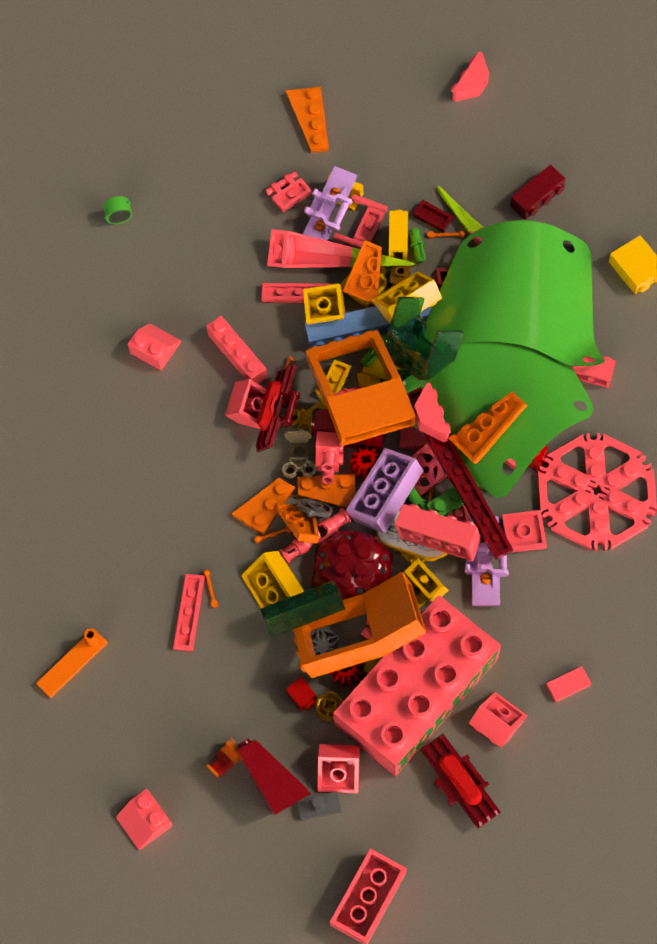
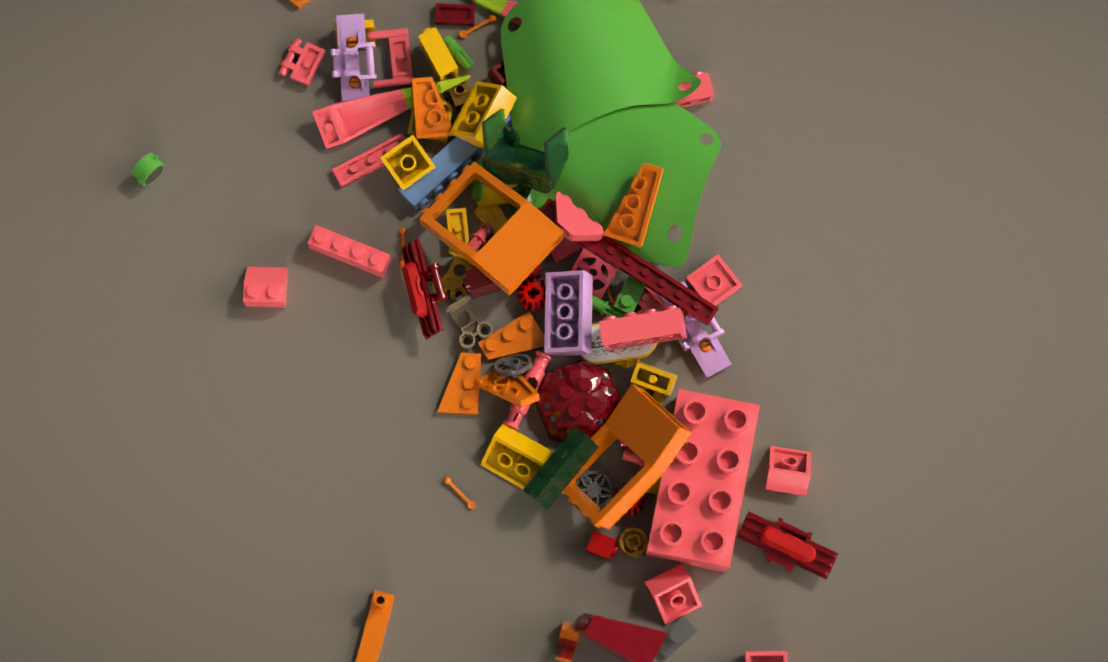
camera: 35 degrees left, 10 degrees up
(189, 612) = (453, 526): coral tile -> none
(245, 403) = (389, 297): coral slope -> none
(257, 539) = (475, 422): orange hinge -> none
(328, 455) = (497, 308): coral brick -> none
(568, 684) = (831, 403): coral tile -> none
(597, 505) = (766, 218): coral plate -> none

